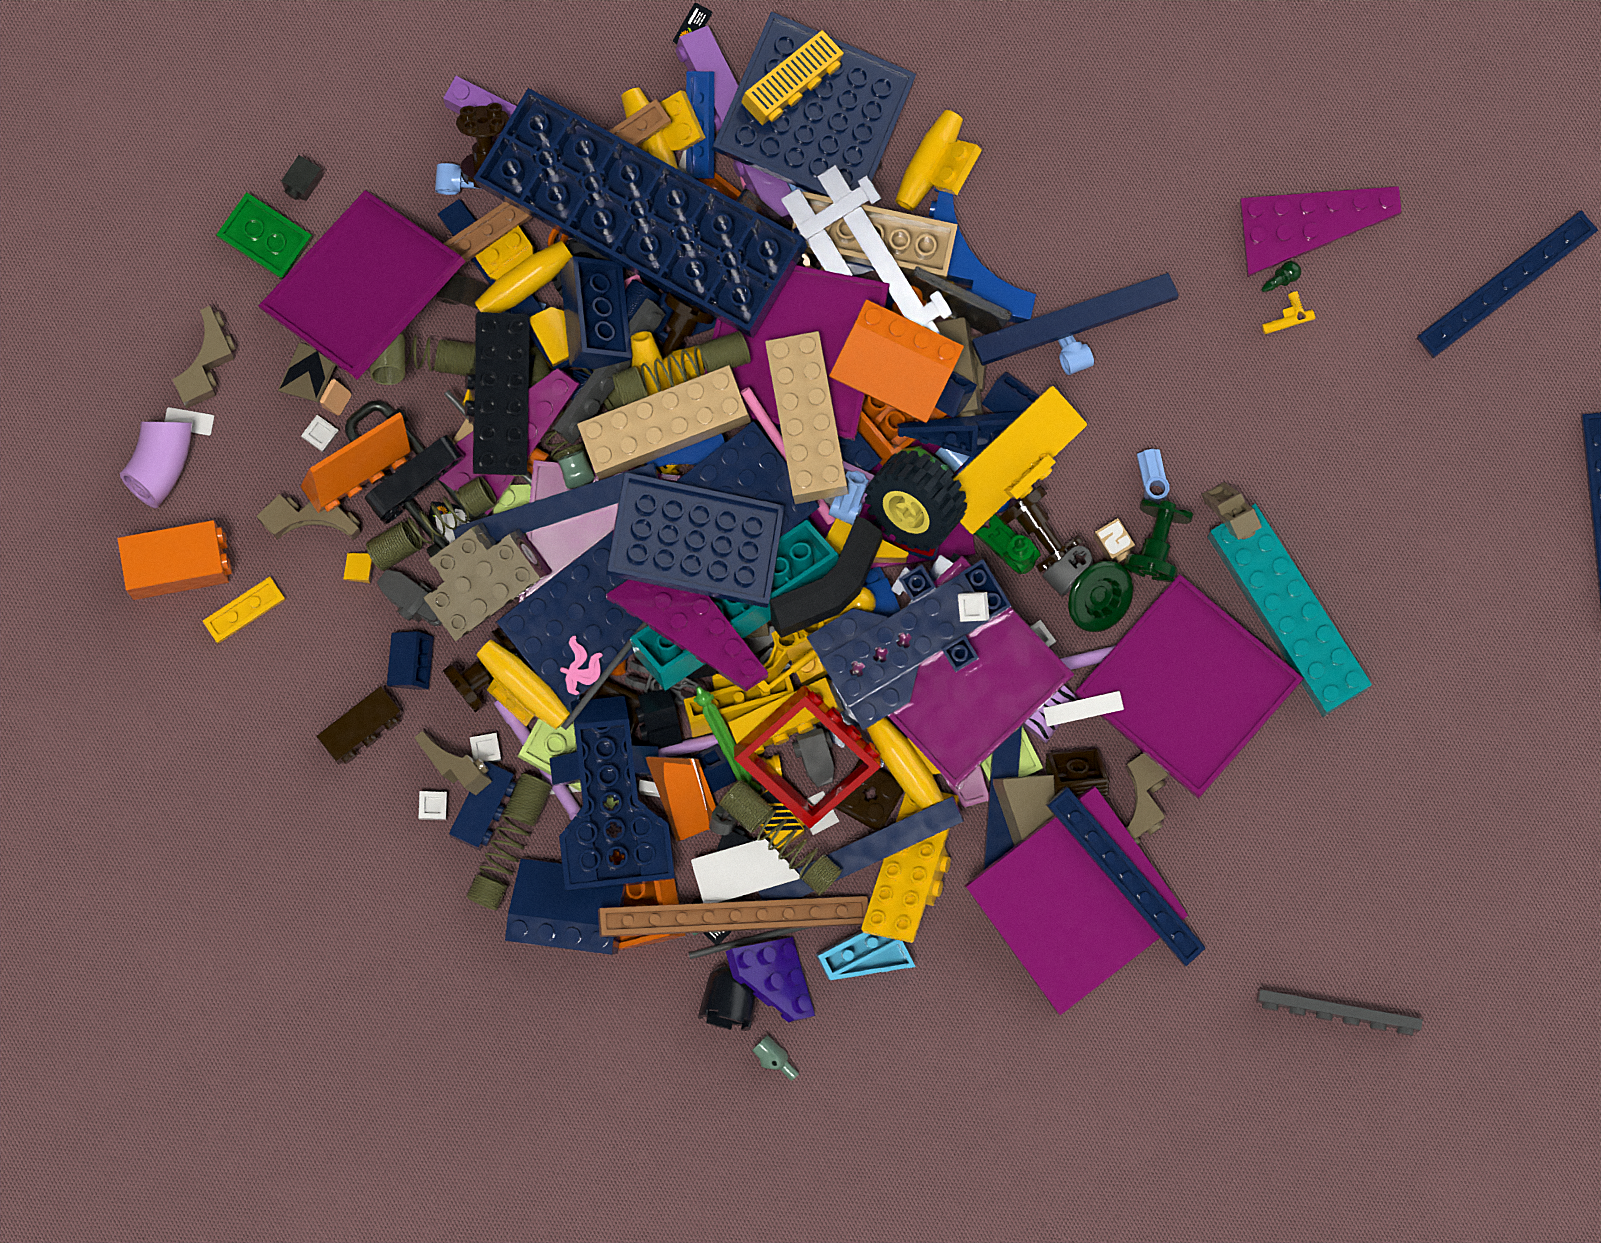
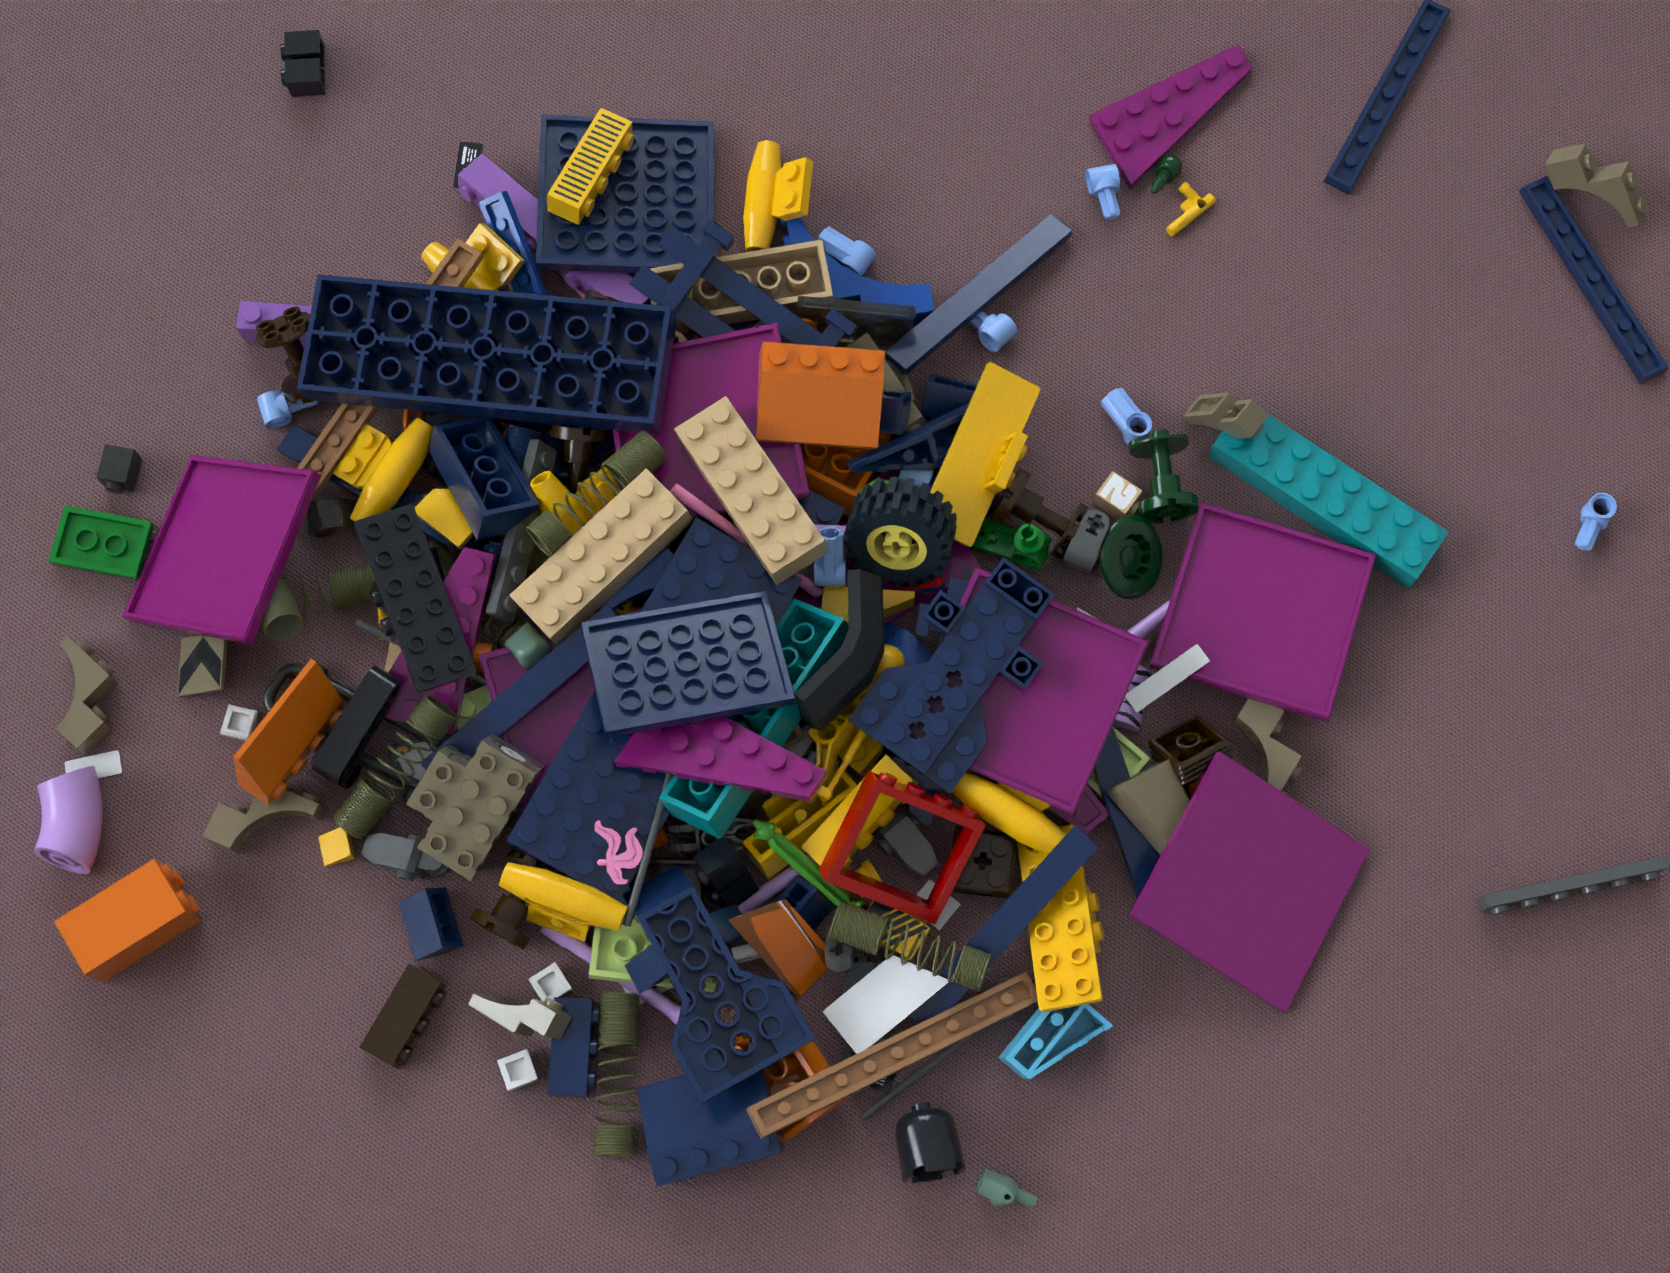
camera: 20 degrees left, 5 degrees down
(243, 610) = (228, 944): yellow tile -> none
(335, 397) = (241, 678): light nougat slope -> none
(774, 975) = (966, 1100): dark purple plate -> none
(973, 606) = (1015, 611): white tile -> none
(982, 241) = (852, 255): none -> light blue piece
(1125, 876) = (1290, 834): dark blue tile -> none
(1224, 266) = (1104, 183): none -> light blue axle
(1500, 725) = (1593, 521): none -> light blue axle

